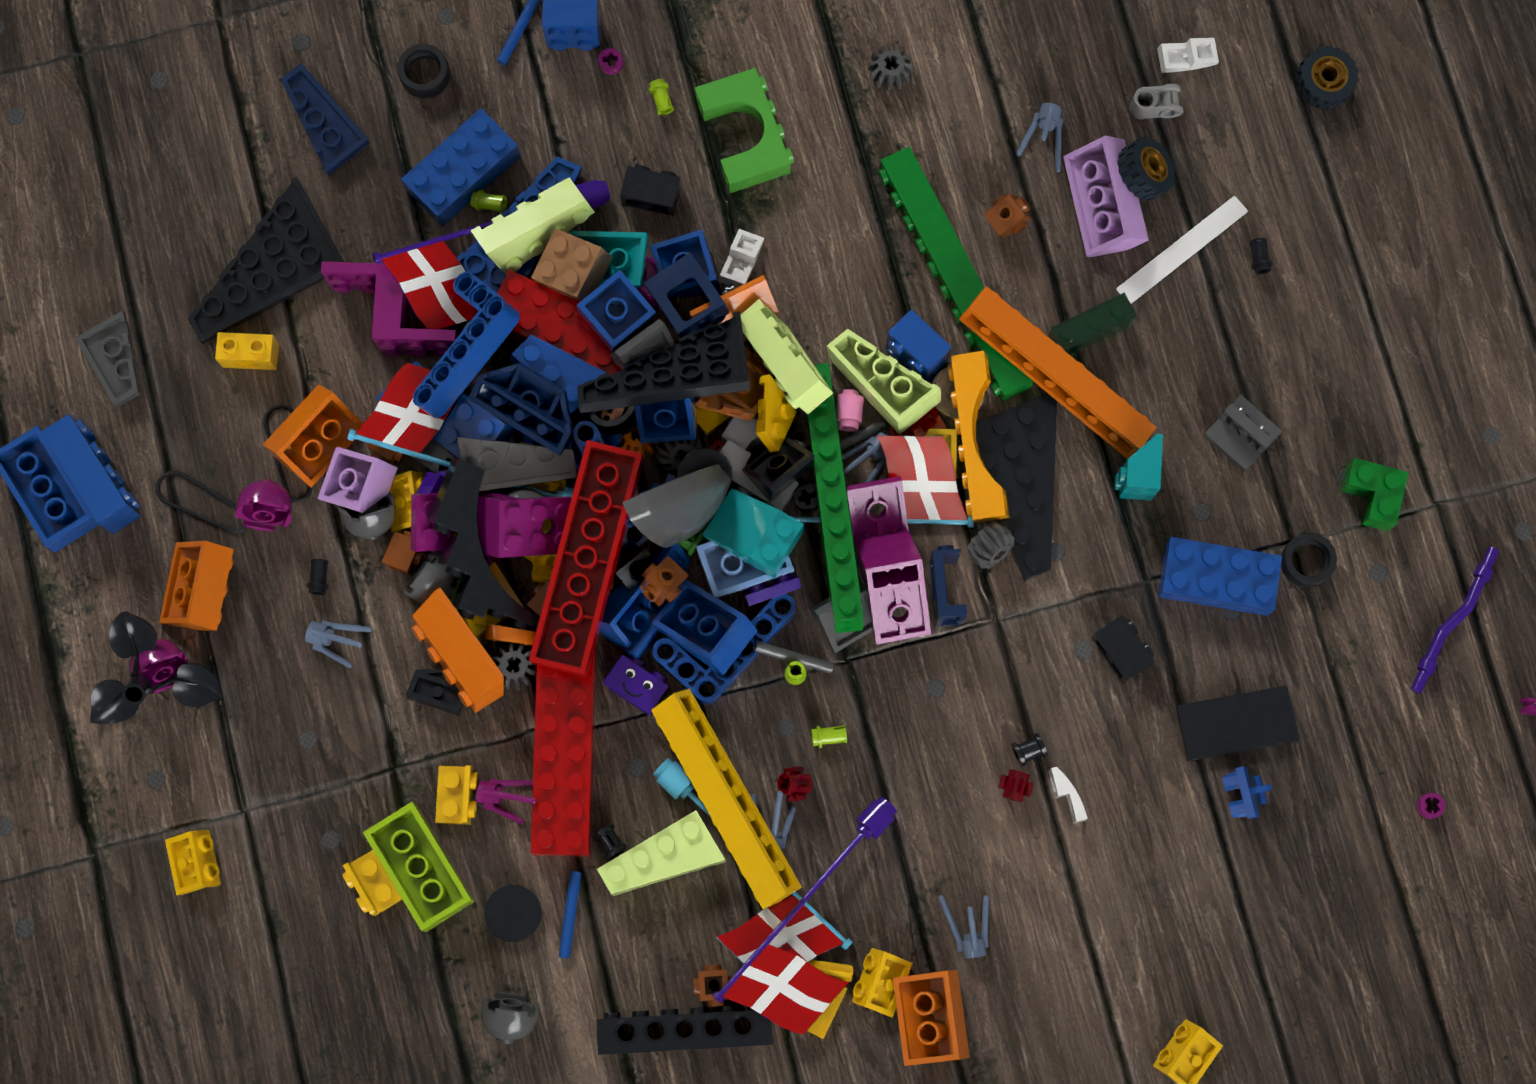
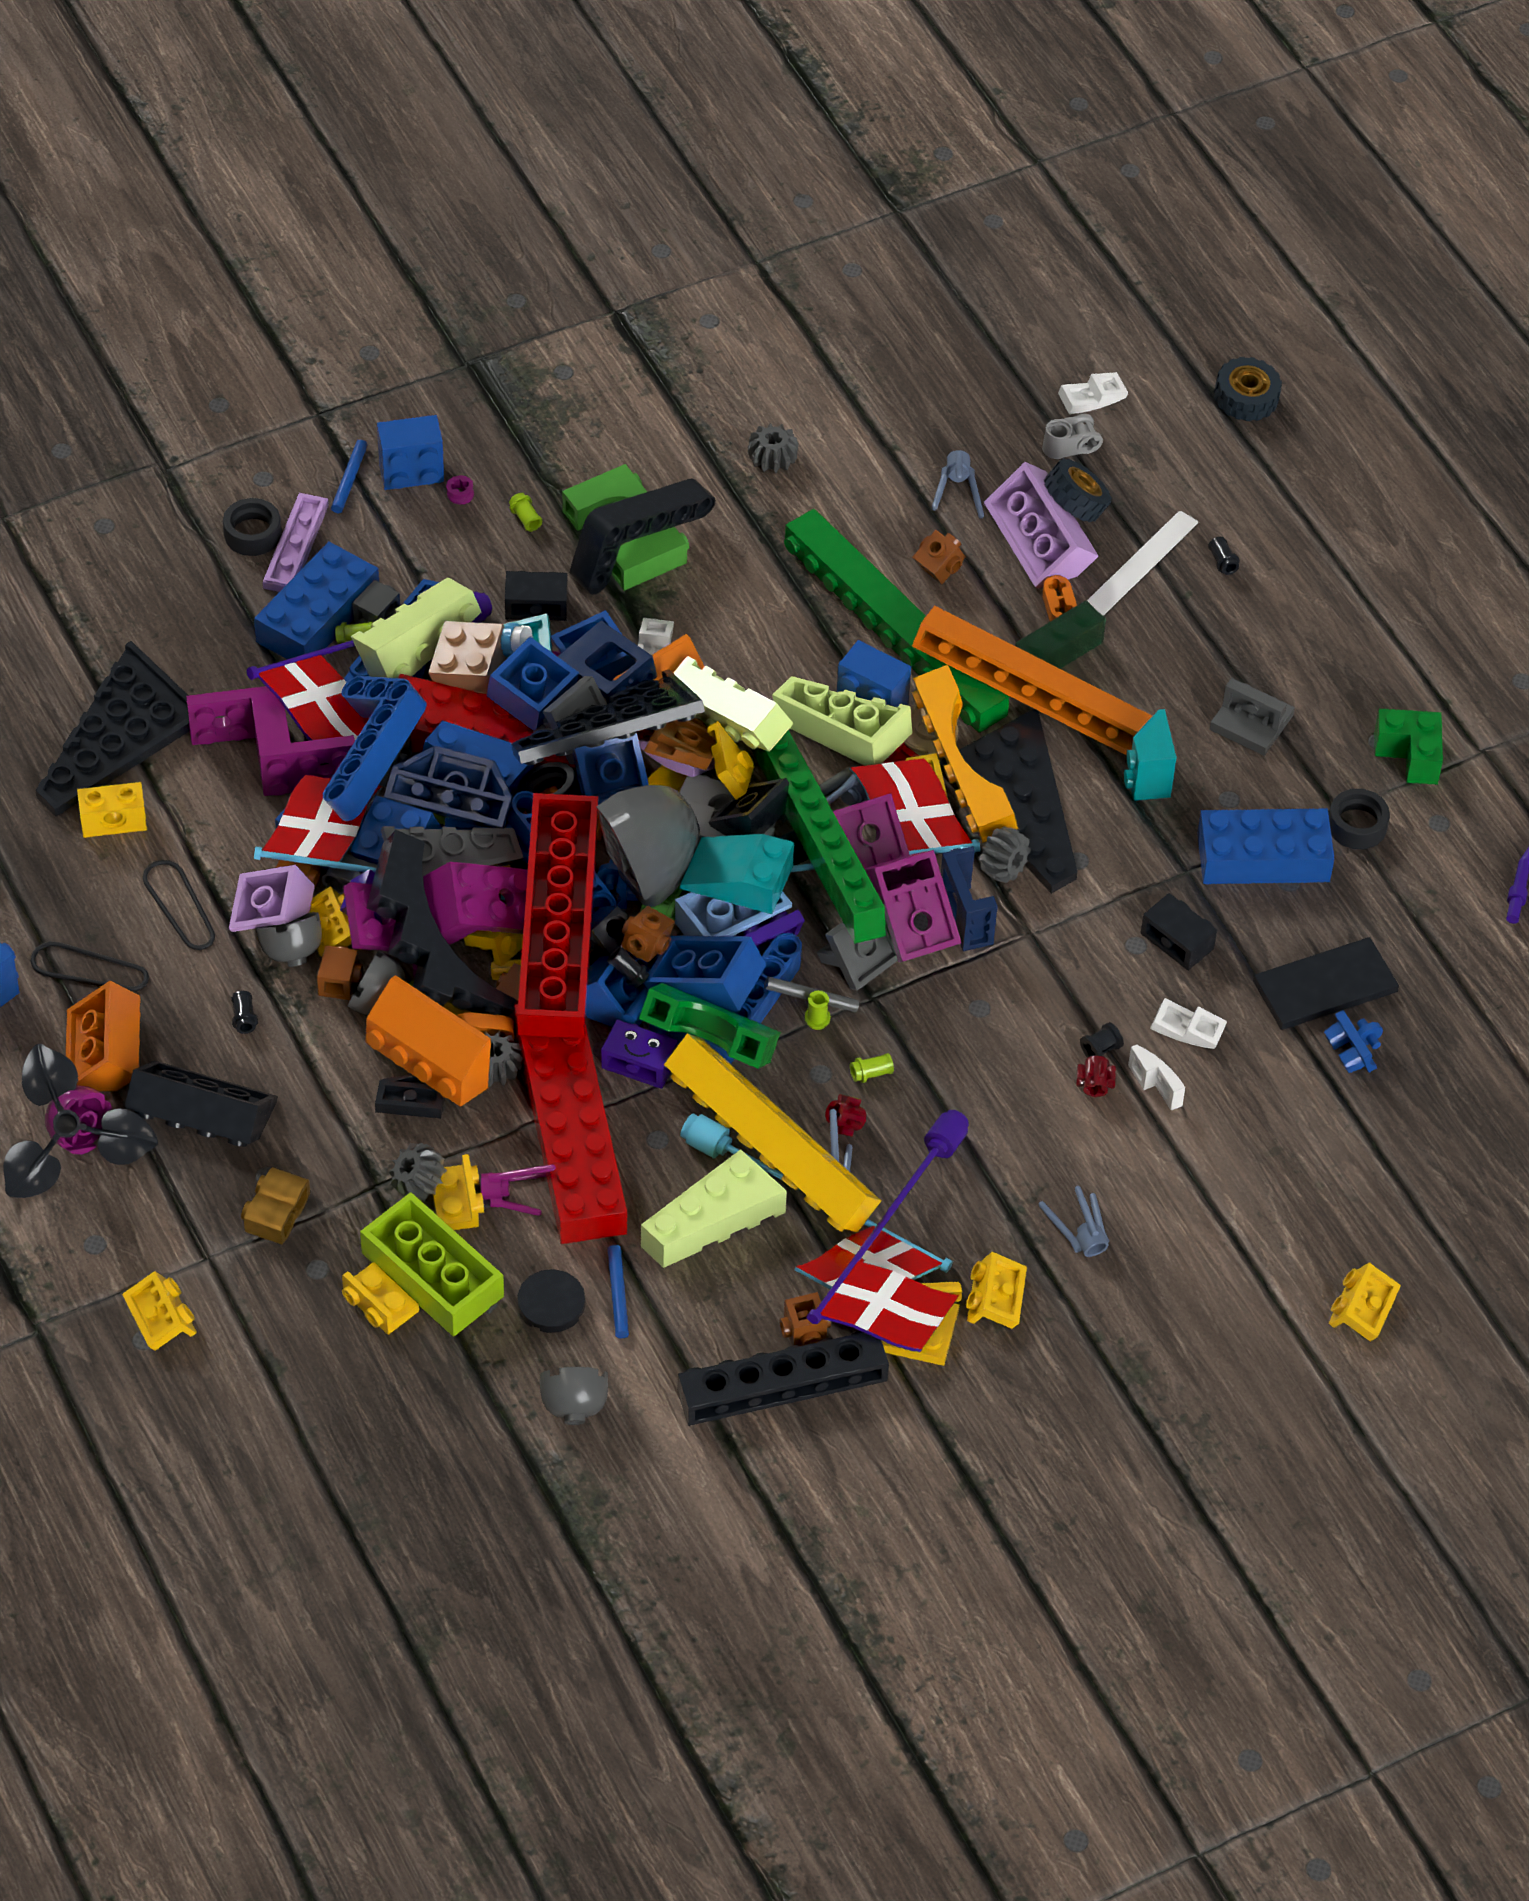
camera: 15 degrees left, 25 degrees down
(264, 505) = (167, 950): magenta cylinder -> none
(264, 661) = (199, 1102): none -> black slope
(305, 778) = (276, 1205): none -> pearl gold brick
(311, 435) = (206, 875): orange slope -> none
(322, 634) = (261, 1065): sand blue plant -> none
(327, 125) = (147, 587): dark blue wing -> none
(426, 772) = (417, 1171): none -> dark grey gear
(459, 92) = (295, 541): none -> lavender tile
(512, 177) = (375, 603): none -> dark grey brick
(609, 842) = (642, 1204): black bush -> none
(612, 258) = (513, 636): none -> piece
(645, 614) = (628, 967): none -> black pin
(670, 666) = (685, 1013): none -> green arch
(748, 139) = (629, 520): none -> black beam
(849, 410) = (815, 755): bright pink brick -> none
(931, 1017) = (1062, 1309): orange slope -> none
(1098, 278) = (1054, 602): none -> orange beam
(1108, 743) = (1190, 1027): none -> white slope

